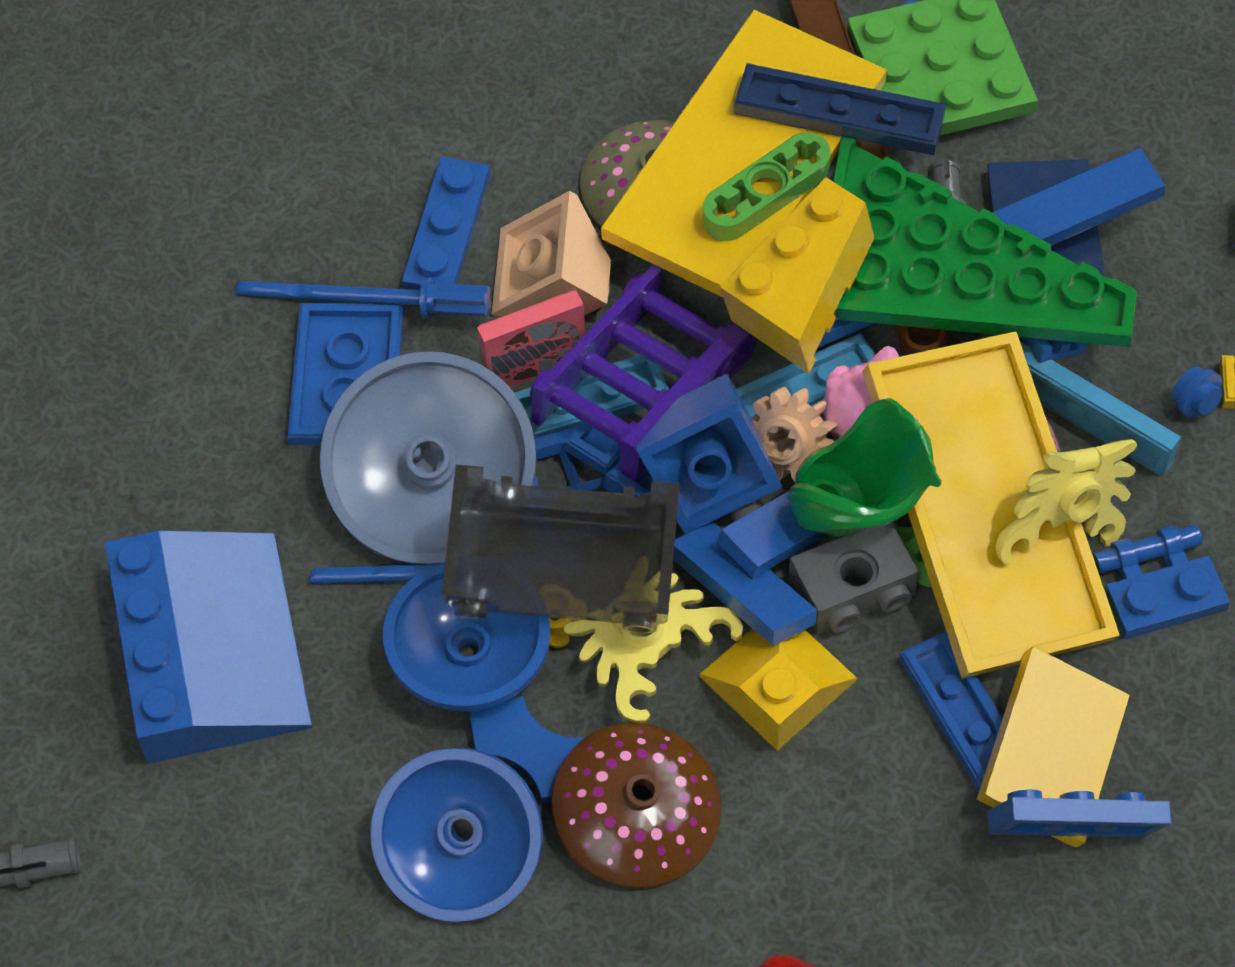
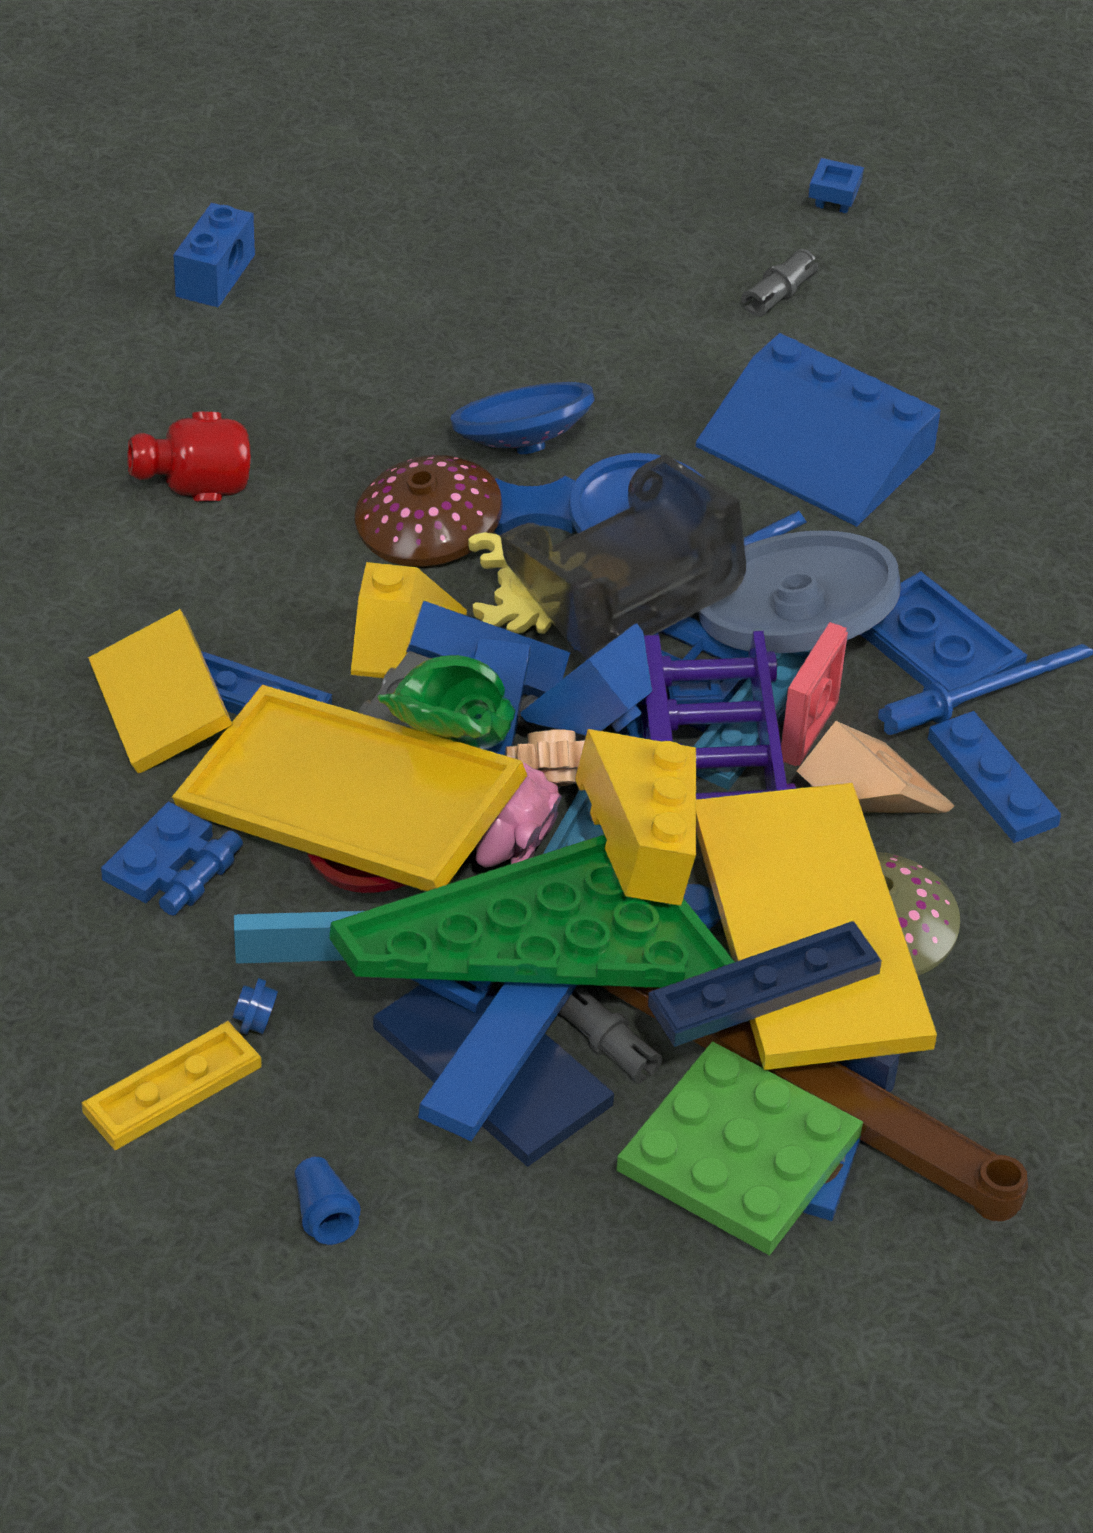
camera: 135 degrees right, 15 degrees down
(757, 206) = (760, 896): bright green beam -> none
(1074, 488) = (282, 805): light yellow animal -> none
(1078, 815) = (99, 637): plate -> none

